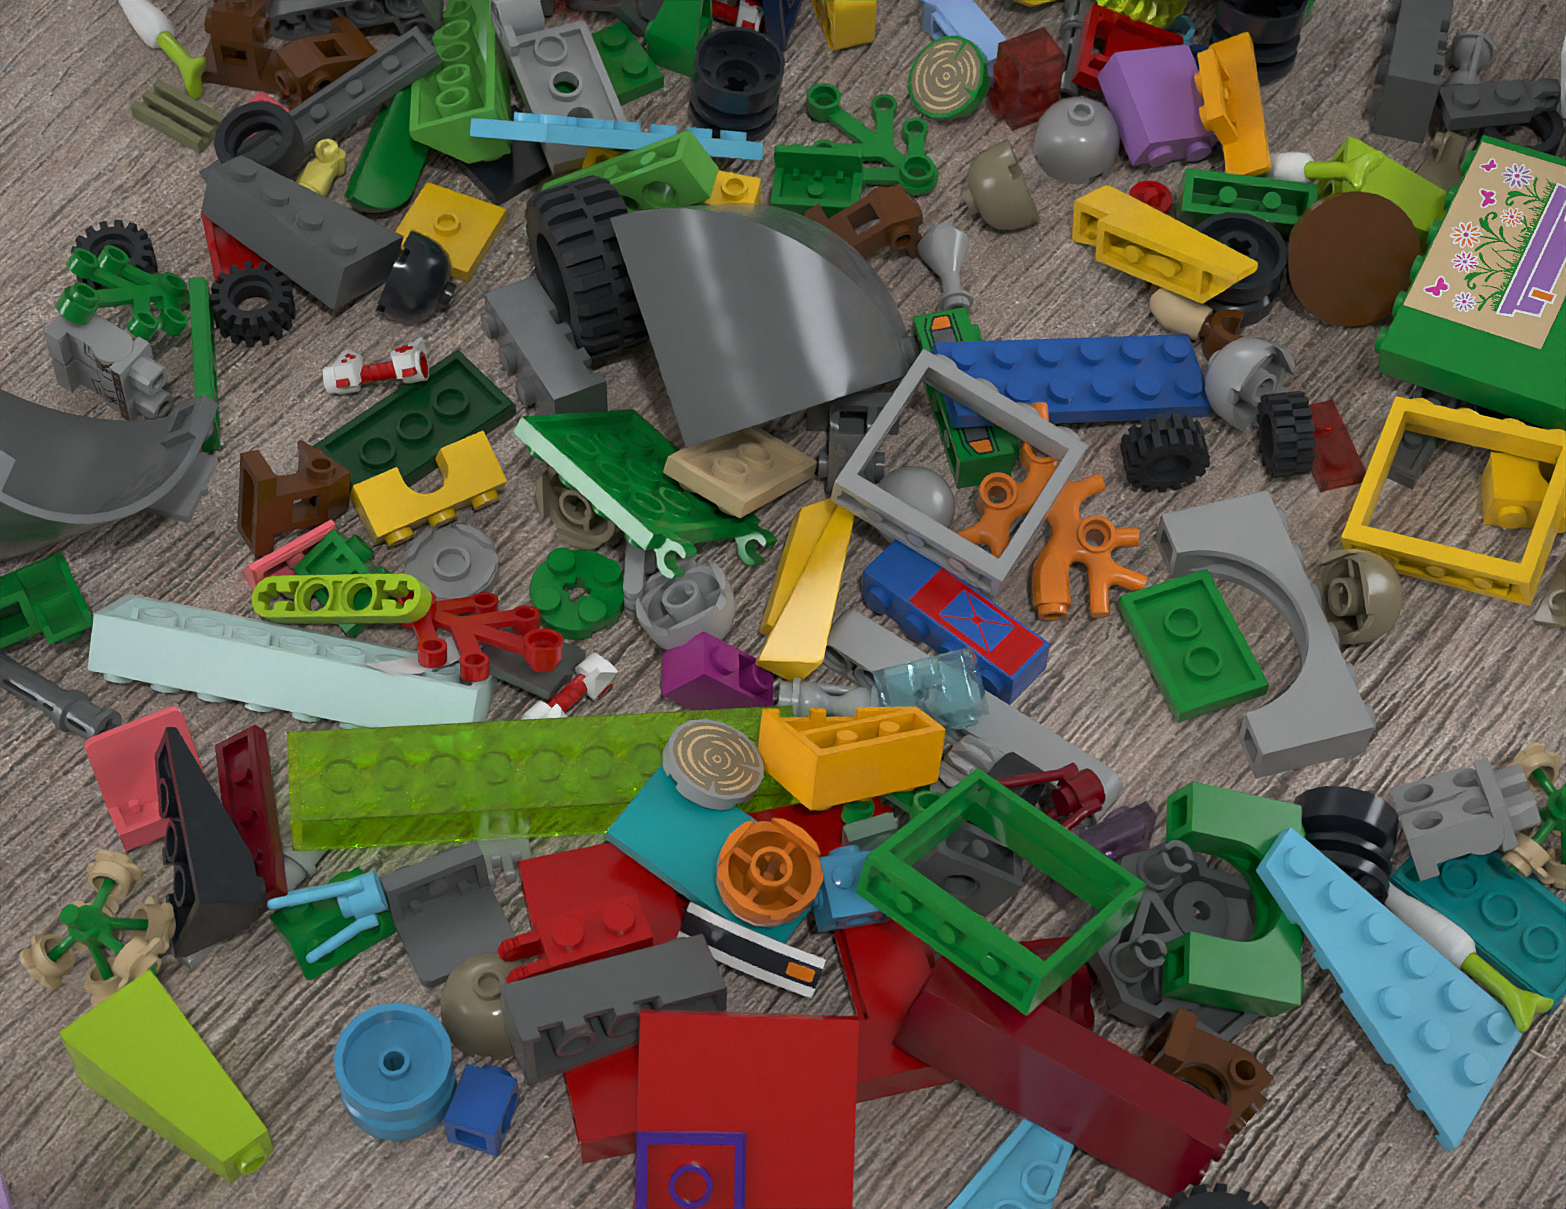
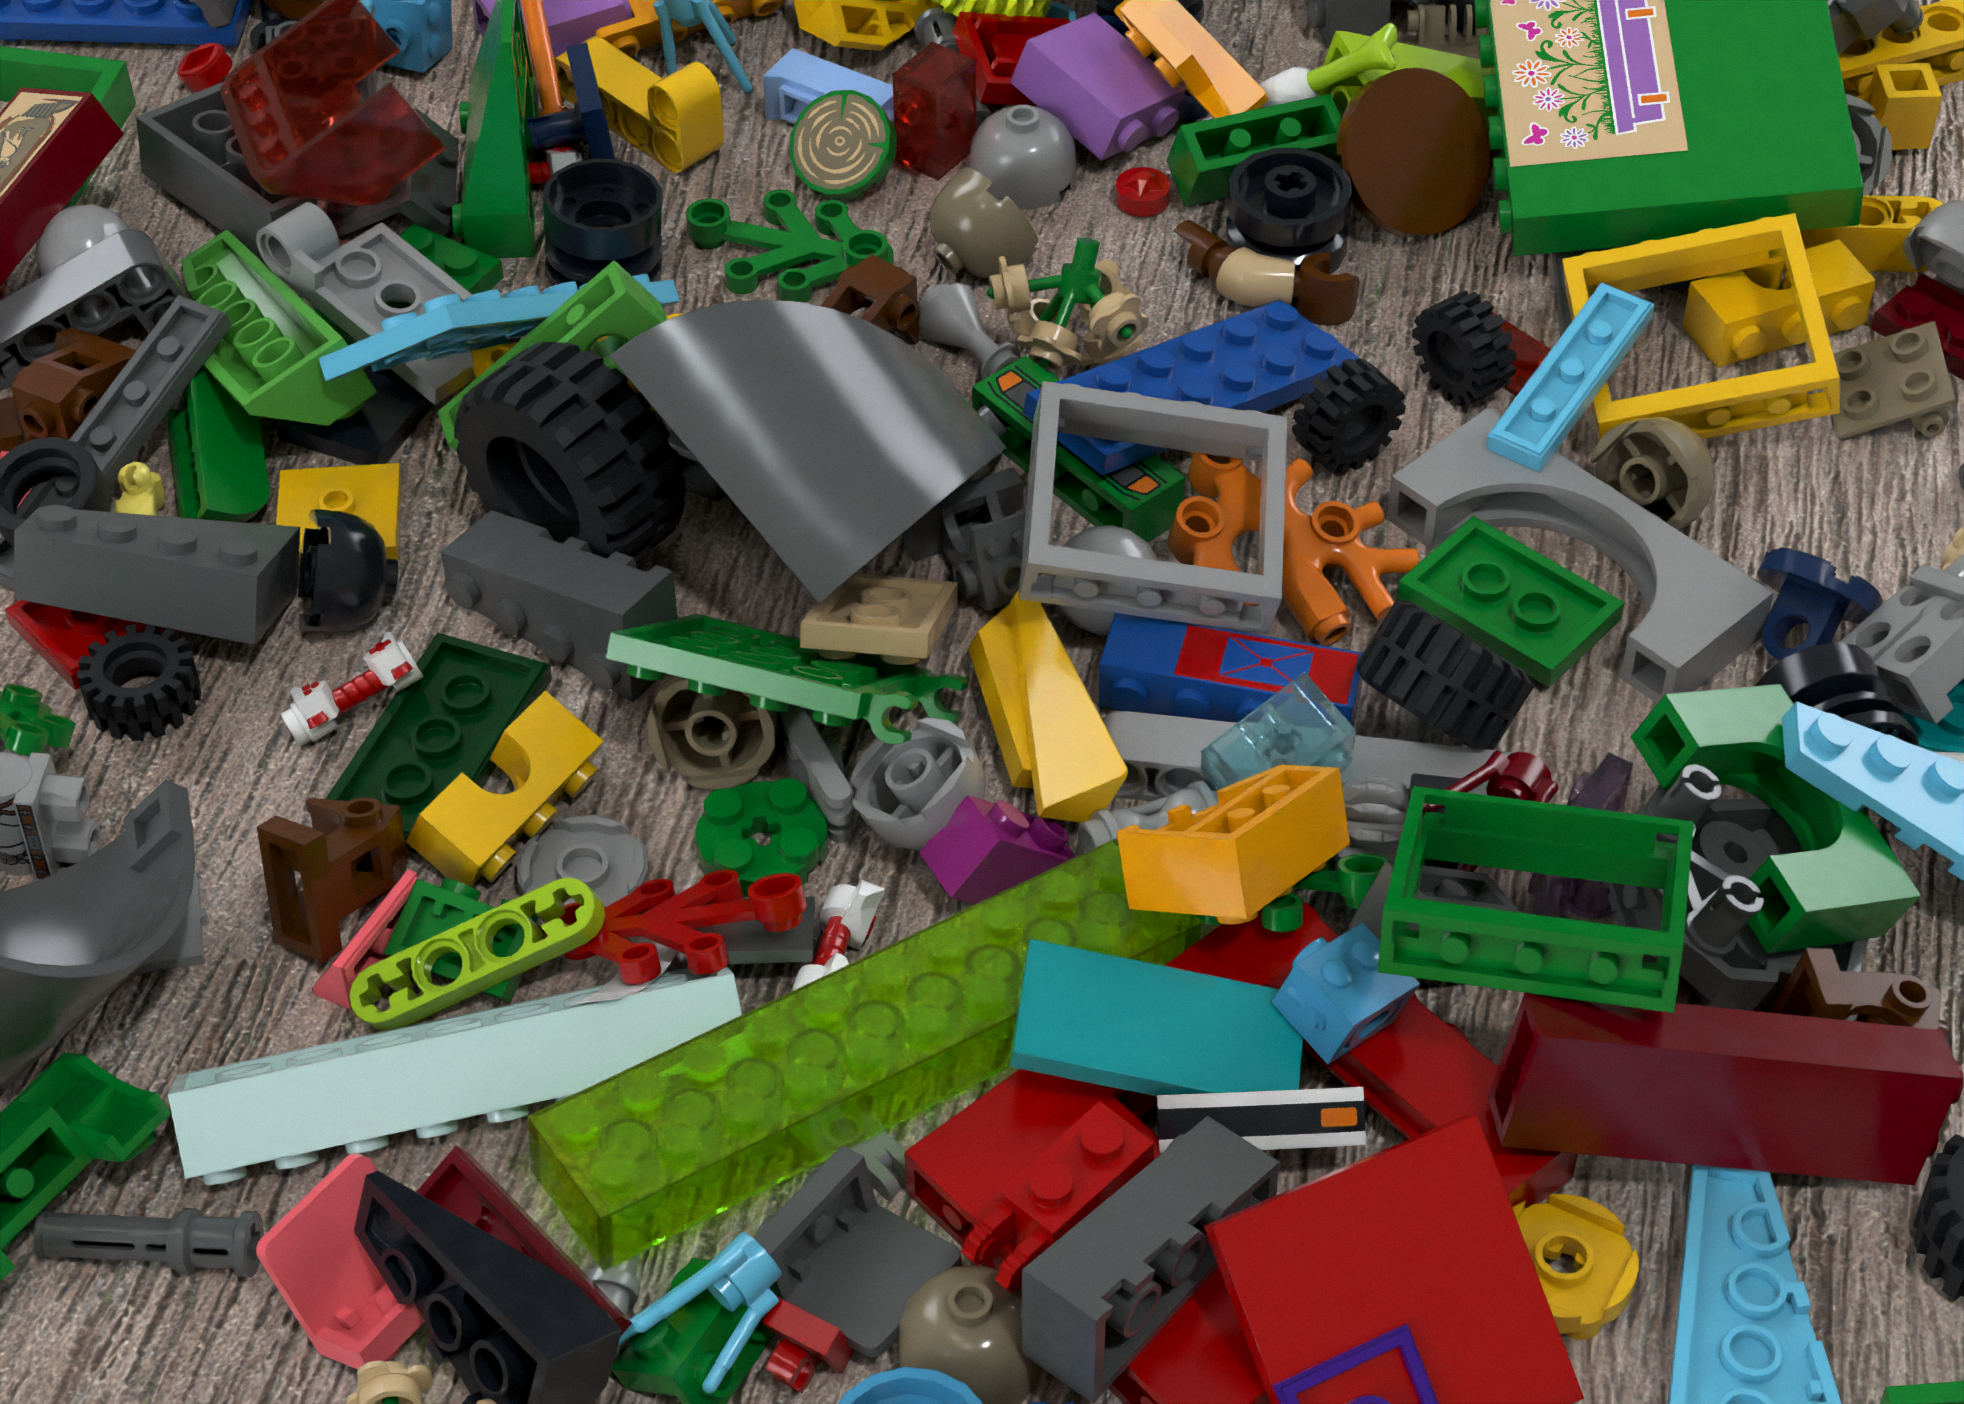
camera: 25 degrees left, 10 degrees down
(204, 352) = (99, 741): green tile -> none
(386, 958) = (803, 1343): none -> red tile
(713, 764) = (1091, 922): tile -> none
(769, 872) = (1251, 1004): orange cylinder -> none
(816, 176) = (761, 275): green bracket -> none
(869, 832) = (1325, 918): sand green tile -> none
(927, 1148) = (1602, 1256): none -> yellow plate
(1007, 280) = (1043, 324): none -> tan plant
(1085, 688) = (1444, 676): none -> black tyre
(1156, 246) = (1199, 217): yellow wedge -> none
(1243, 374) = (1379, 311): light grey cylinder -> none
(1337, 493) = (1570, 377): none -> medium azure tile
(1403, 744) = (1810, 596): none -> dark blue tile

